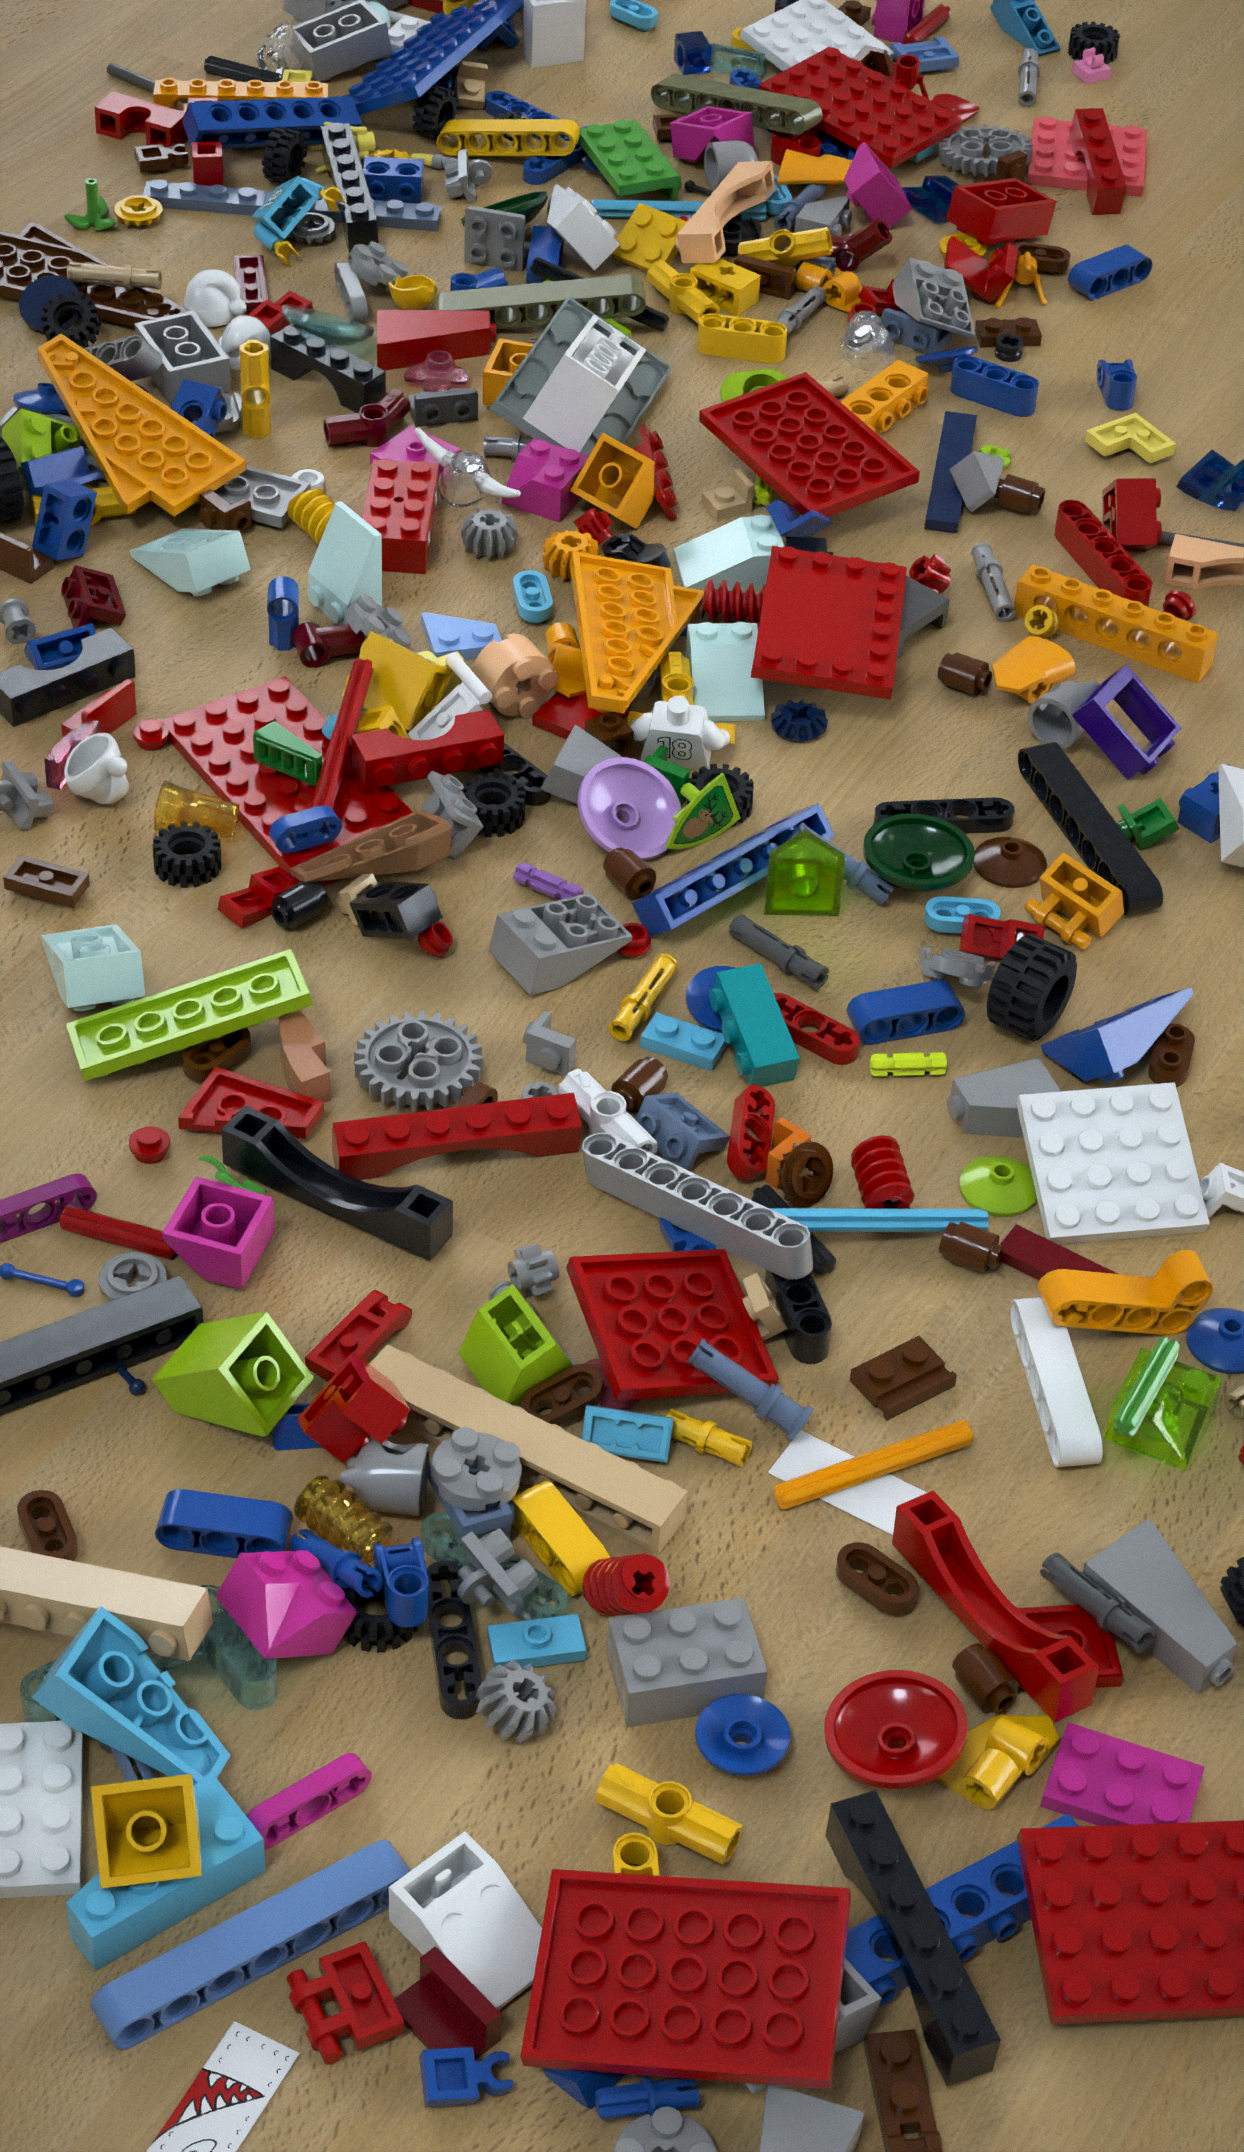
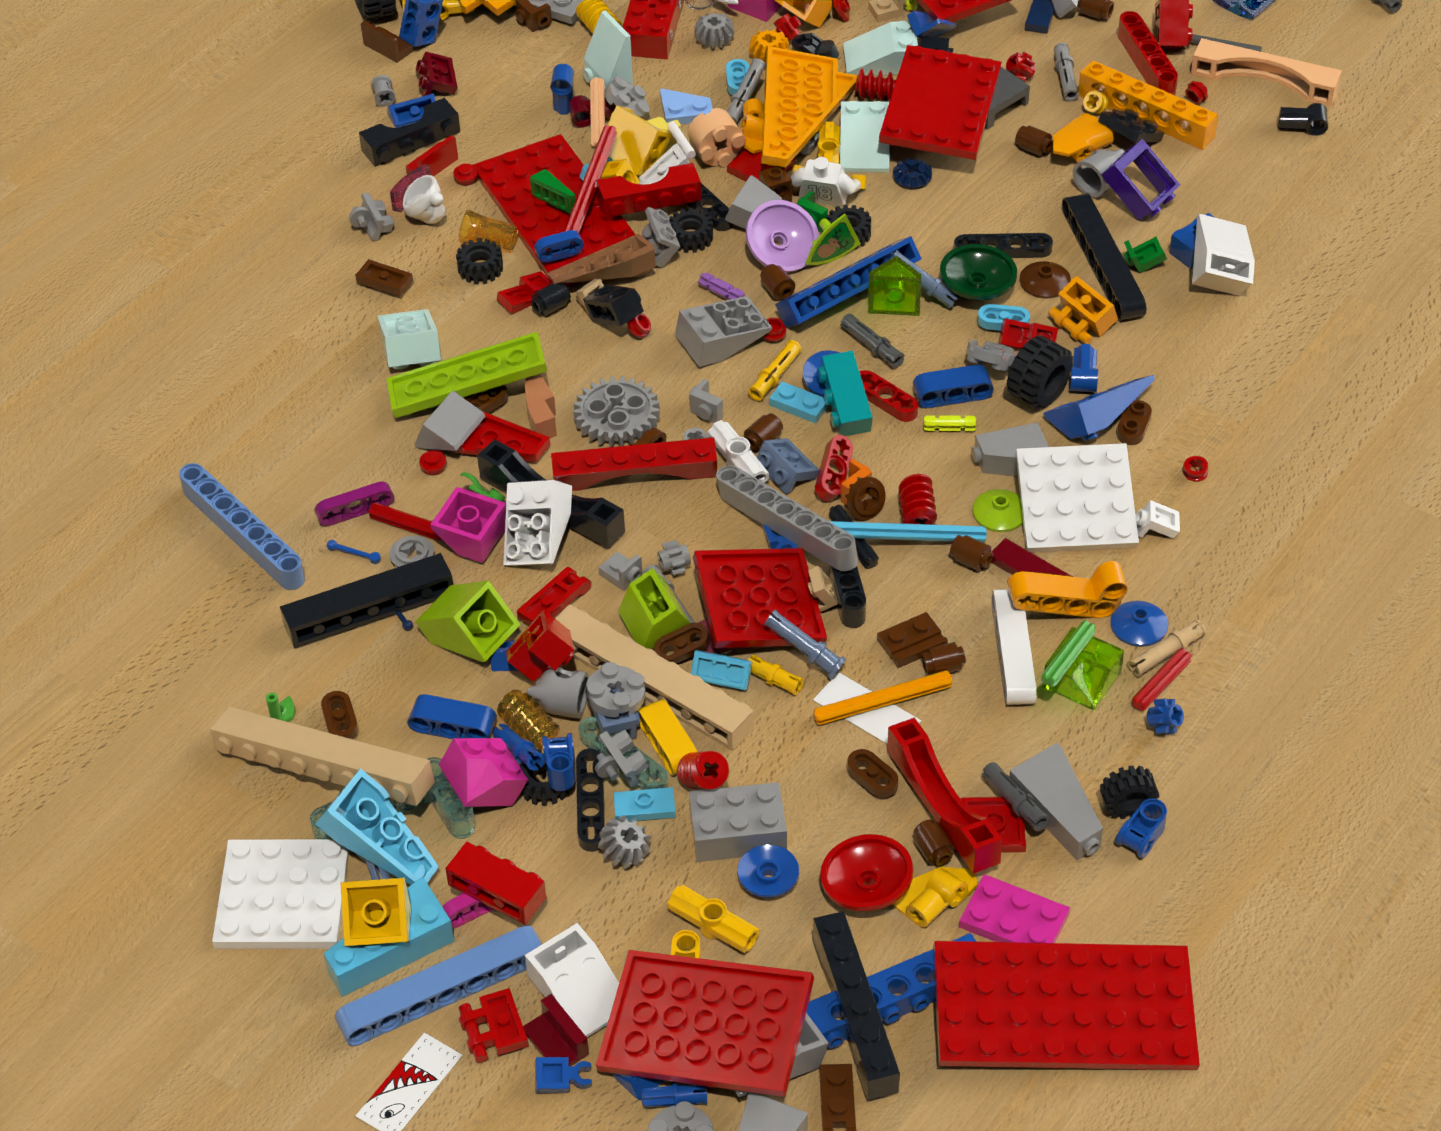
camera: 10 degrees right, 5 degrees up
(171, 1087) = (449, 424): none -> light grey slope
(195, 559) = (508, 47): light aqua slope -> none
(319, 1224) = (535, 521): none -> white slope
(329, 1774) = (496, 882): none -> red brick
(337, 642) = (597, 103): none -> light nougat axle
(455, 1292) = (621, 570): none -> light grey bracket
(559, 585) = (756, 69): none -> light grey pin
(954, 1403) = (943, 658): none -> reddish brown brick
(1091, 990) = (1084, 372): none -> blue piece
(1093, 649) = (1131, 126): none -> black plate

